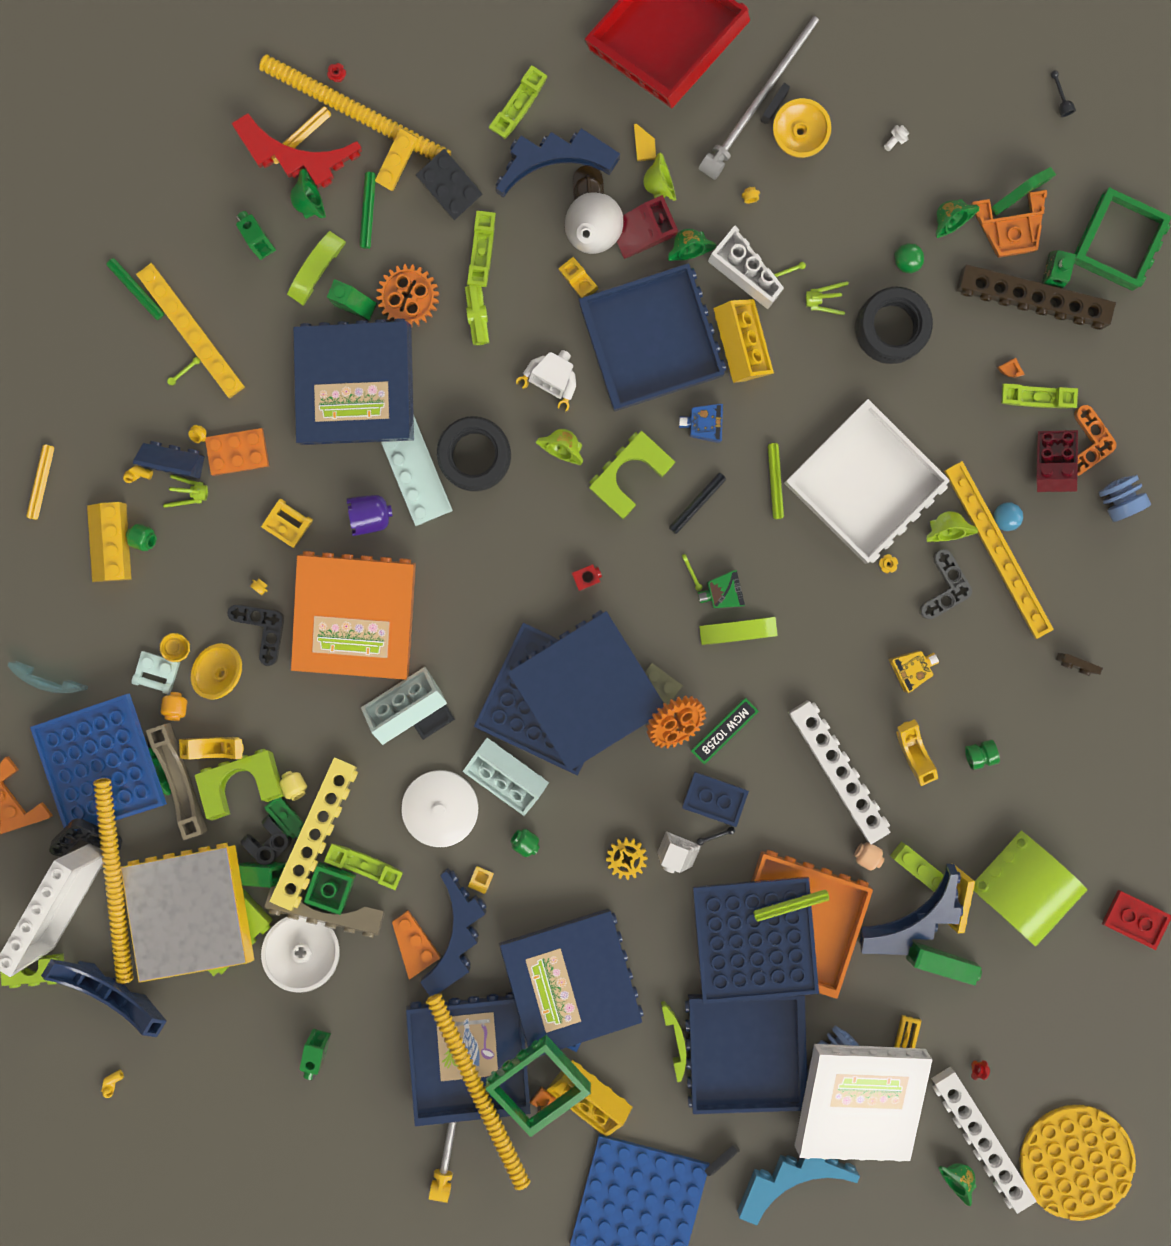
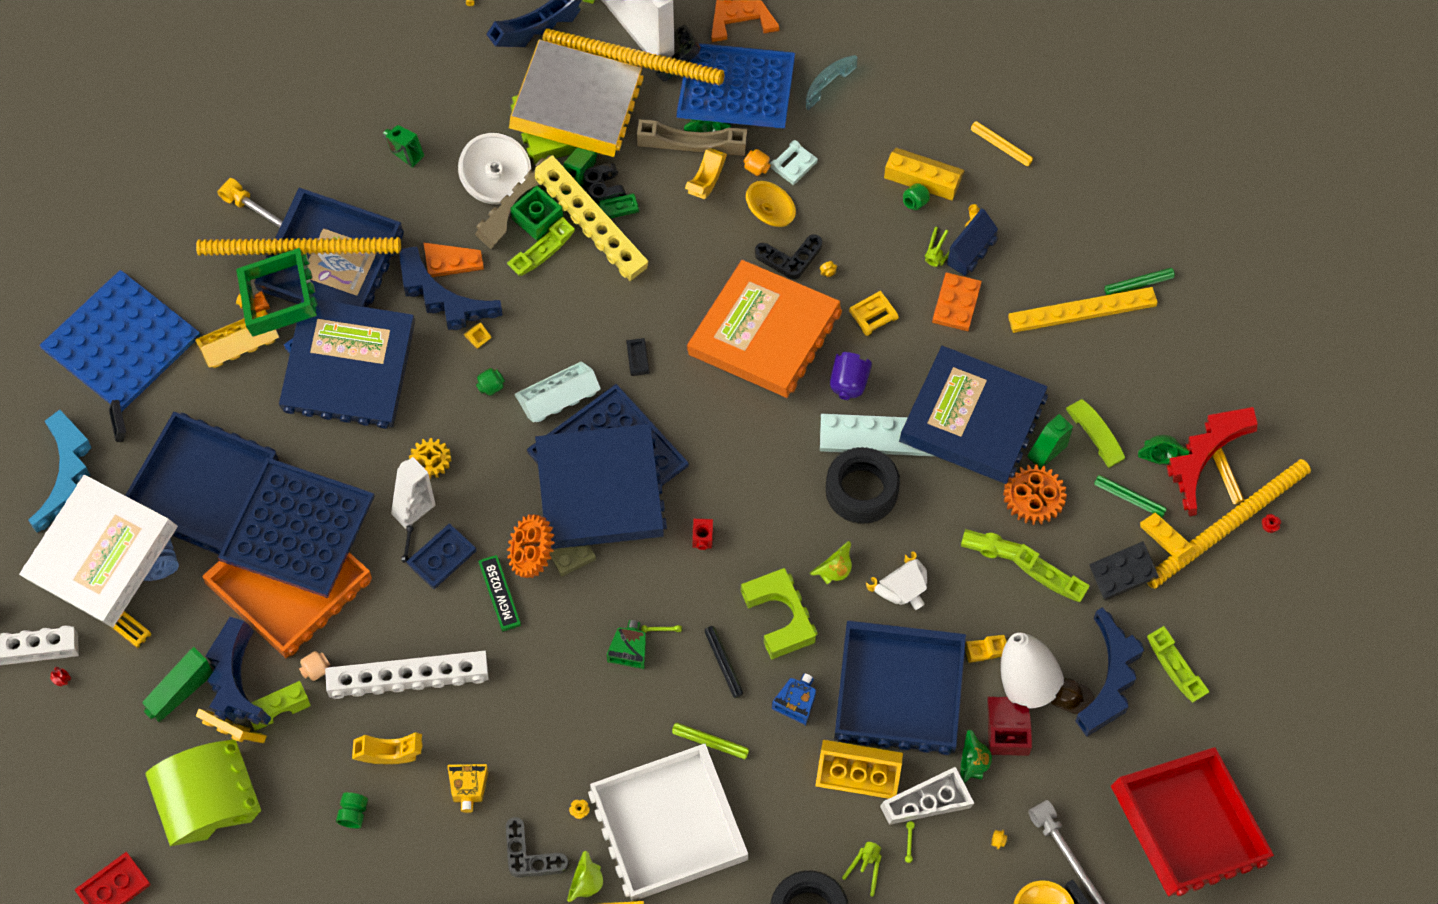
camera: 115 degrees right, 25 degrees down
(172, 381) = (1044, 277): lime hinge -> none
(174, 647) = (807, 182): yellow hair -> none
(197, 434) = (987, 276): yellow plate -> none
(213, 781) = (675, 164): lime arch -> none
(254, 235) = (1145, 391): green torso -> none
(293, 785) = (640, 223): light yellow head -> none
(403, 705) = (664, 336): light aqua slope -> none
(440, 808) = (558, 329): white dish -> none
(644, 144) = (1090, 763): yellow tile -> none
(658, 179) = (1049, 760): lime hat -> none
(671, 1019) = (266, 434): lime slope -> none
(738, 631) = (584, 646): lime slope -> none
(791, 905) = (311, 567): lime axle -> none

